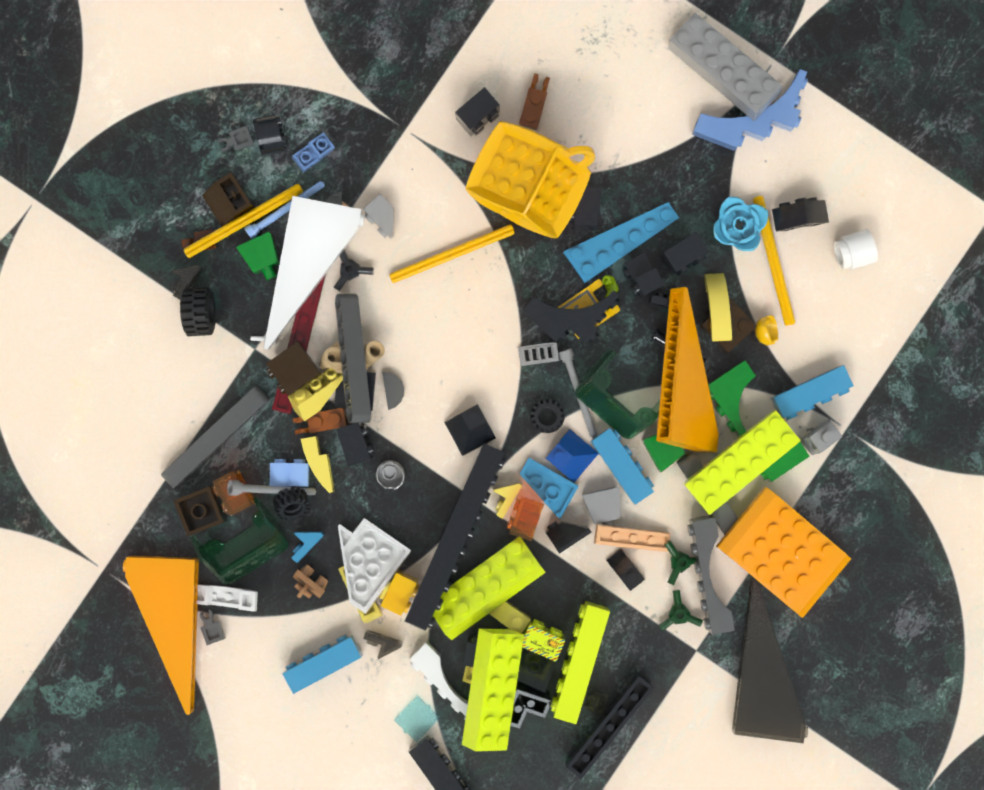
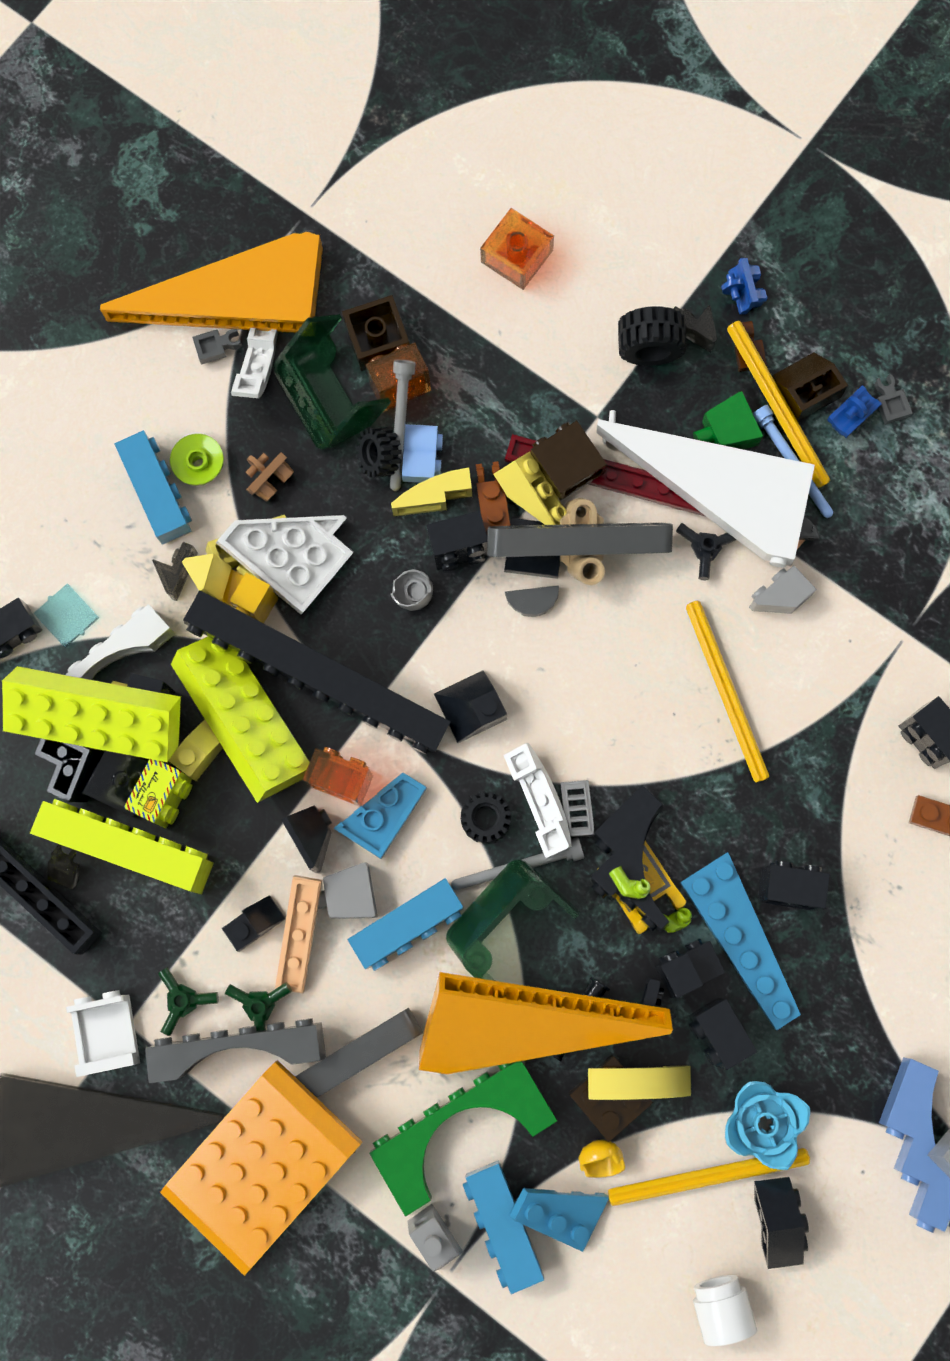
camera: 90 degrees right, 10 degrees down
(130, 411) = (517, 248): none -> clear orange brick
(154, 247) = (742, 288): none -> blue hips
(215, 437) = (478, 359): dark grey beam -> none
(247, 167) = (853, 412): none -> blue hips
(268, 135) = (900, 440): black brick -> none
(290, 636) = (189, 450): none -> lime dish
(309, 539) = (327, 476): dark azure slope -> none
(313, 152) = (873, 504): medium blue slope -> none
(388, 617) = (208, 574): none -> light yellow slope
(509, 493) = (374, 757): light yellow slope -> none
(530, 178) = (842, 798): yellow piece -> none
(534, 377) = (542, 799): none -> white slope
(571, 455) = (425, 850): blue slope -> none
(592, 318) = (628, 887): none -> lime arm
(661, 453) = (420, 985): green torso -> none
(703, 664) = (104, 1033): none -> white panel
(741, 462) = (401, 1107): neon yellow brick -> none
(804, 355) = (560, 1215): none -> dark azure wing

